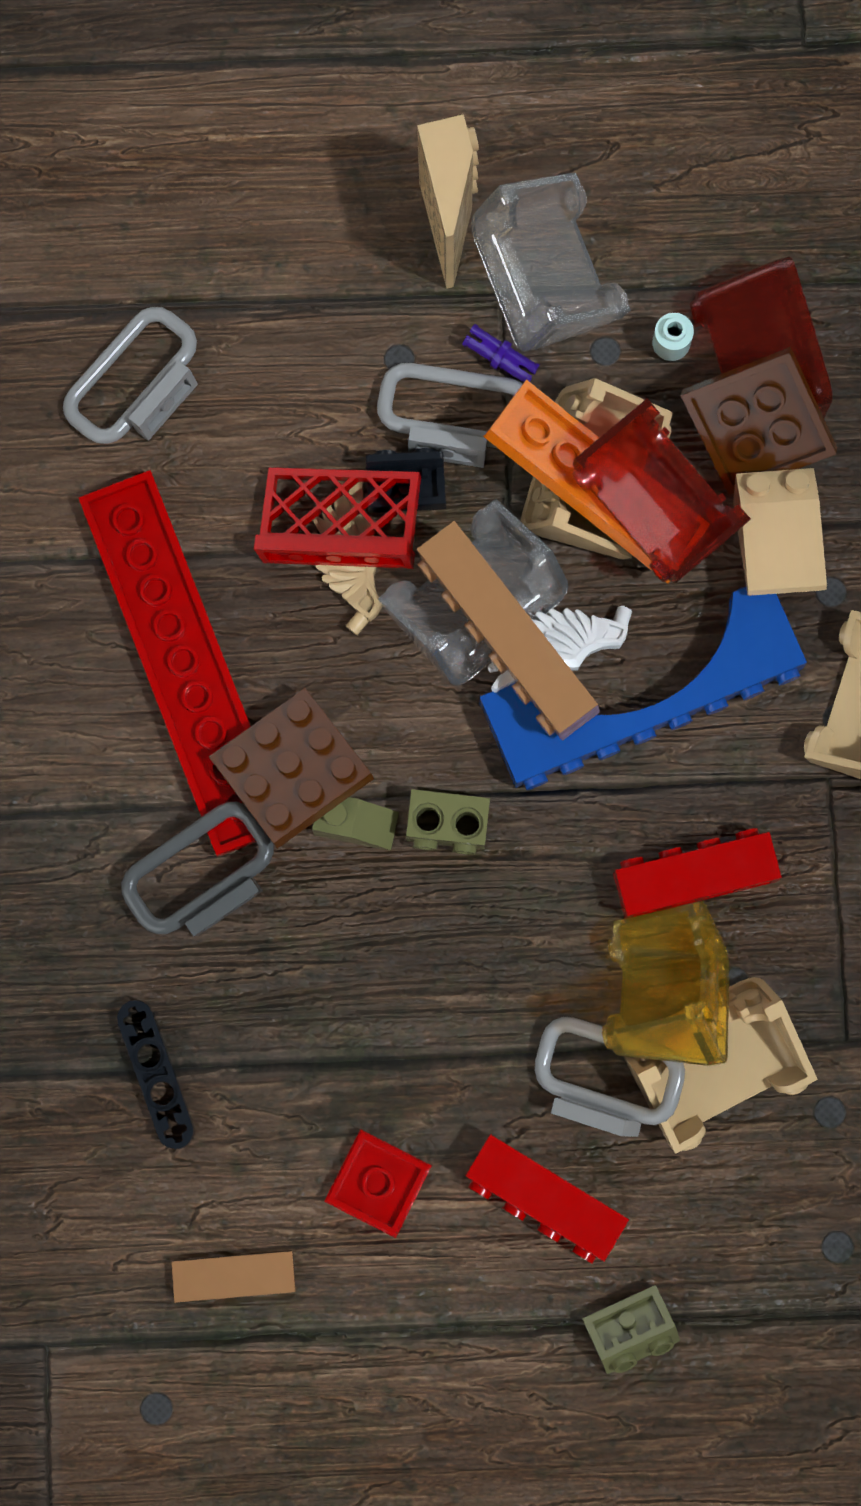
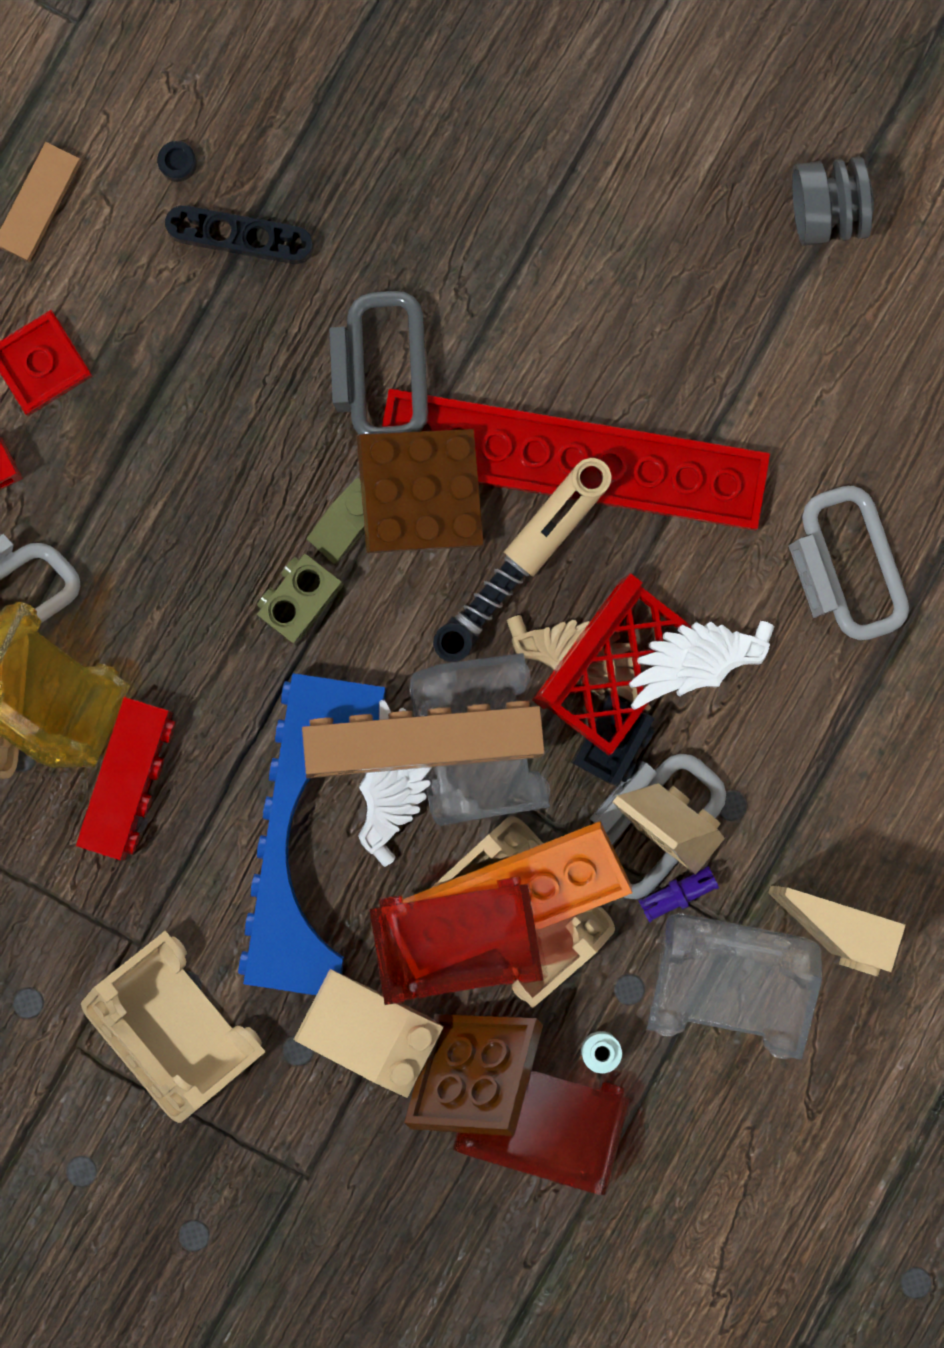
camera: 125 degrees right, 5 degrees up
(121, 1173) = (177, 161): none -> black tile
(291, 646) = (524, 556): none -> piece
(293, 453) = (697, 659): none -> white animal
(446, 385) = (672, 824): none -> tan slope

